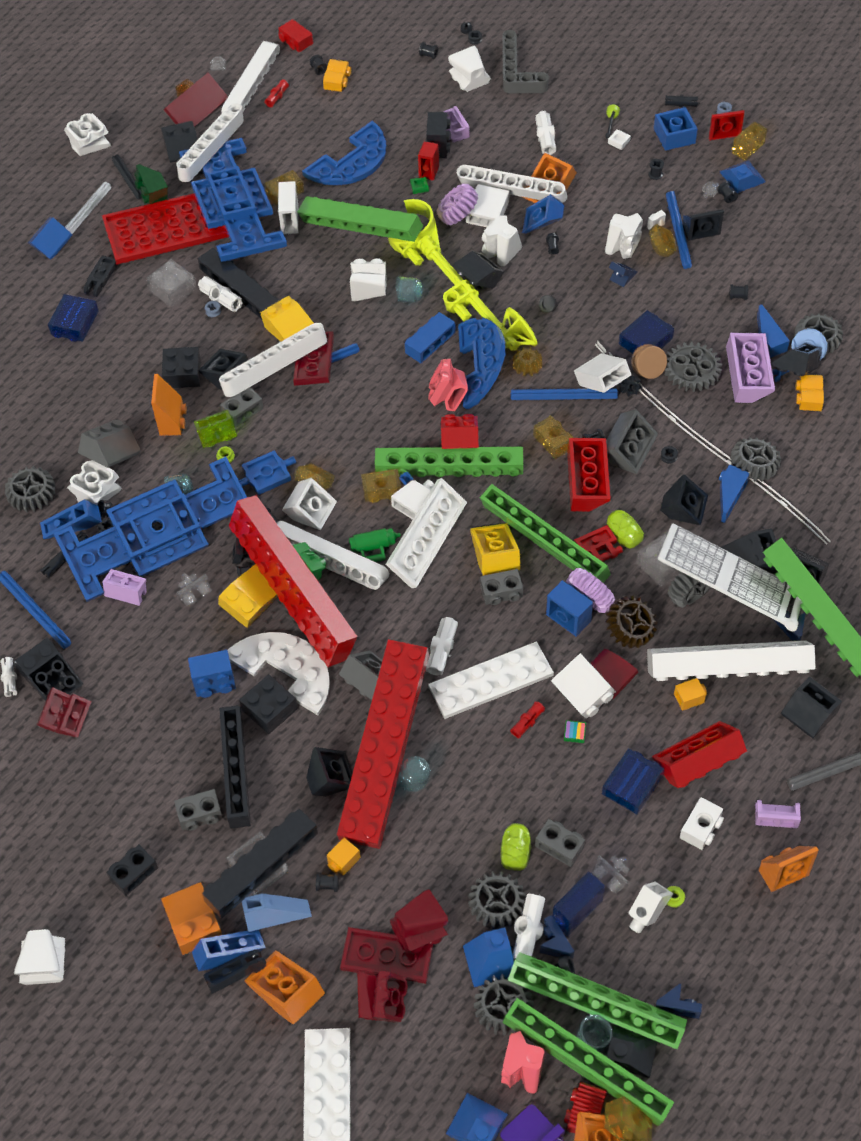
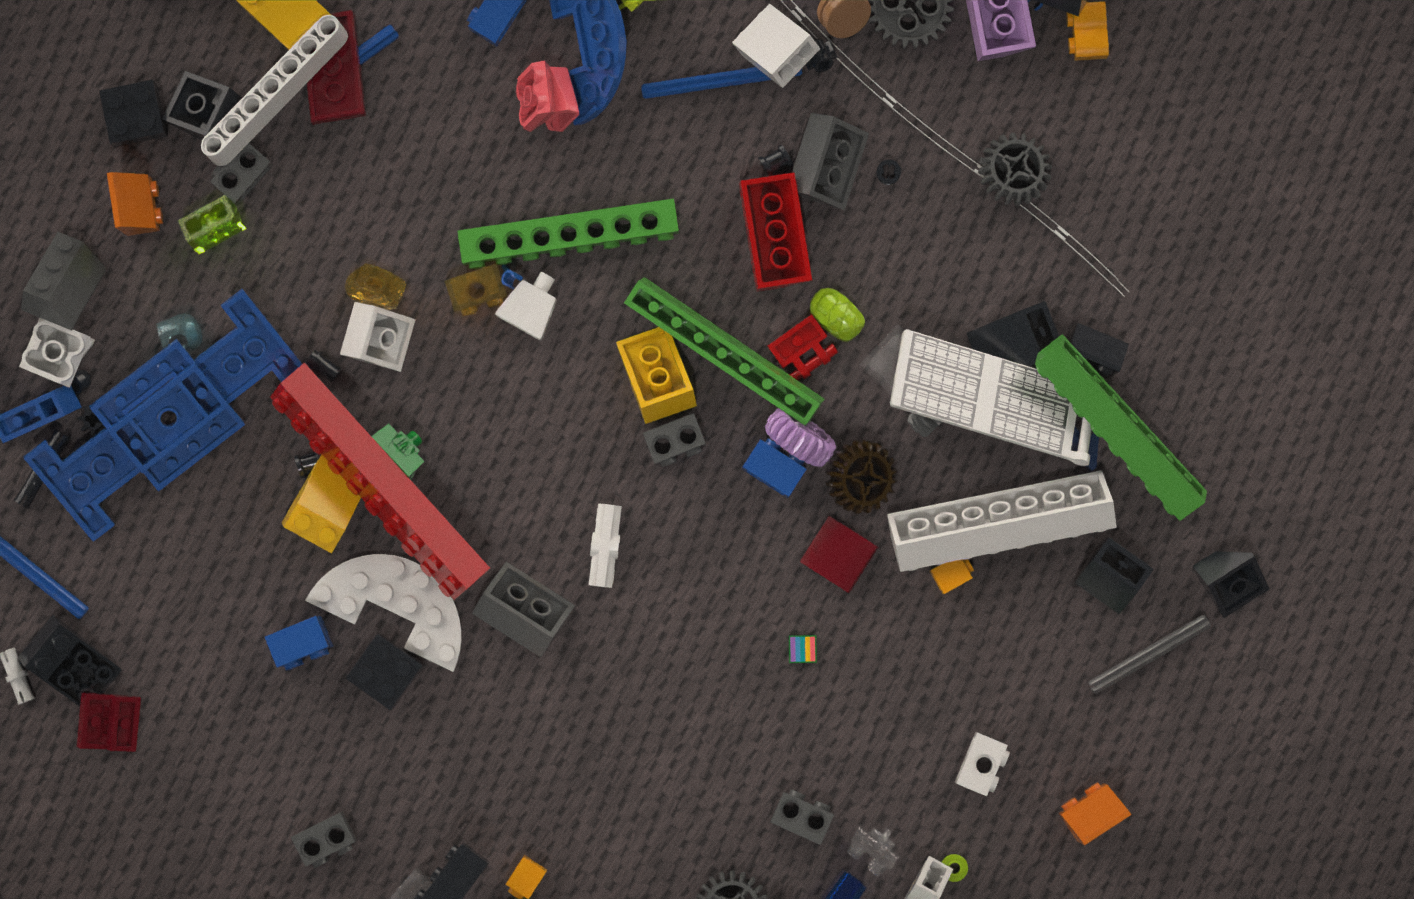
camera: 10 degrees left, 30 degrees up
(124, 587) = (142, 513): lavender hinge -> none
(186, 594) = (232, 510): clear hips -> none
(225, 451) = (226, 262): lime plate -> none
(234, 767) = (359, 773): black brick -> none
(239, 553) = (290, 436): black tile -> none
(266, 472) = (302, 286): blue plate -> none
(328, 772) = (487, 760): black slope -> none
(339, 559) = (427, 421): white beam -> none
(373, 540) = (479, 386): green piece -> none
(383, 744) = (553, 720): red brick -> none
(415, 774) = (598, 746): clear light blue helmet -> none
(426, 533) = (556, 367): white plate -> none
(459, 431) = (577, 186): red brick -> none
(490, 680) = (679, 585): white plate -> none
(515, 847) = (745, 829): lime piece -> none
(527, 361) = (649, 27): clear yellow gear -> none
(527, 719) = (737, 641): red pin -> none
(552, 436) = (722, 182): clear yellow brick -> none
(583, 686) = (808, 587): white brick -> none
(632, 781) = (887, 714): clear blue brick -> none
(684, 501) = (919, 258): black slope -> none
(700, 753) = (970, 661): red slope -> none
(731, 487) = (982, 223): blue slope -> none
(777, 815) = (1078, 733): lavender hinge -> none

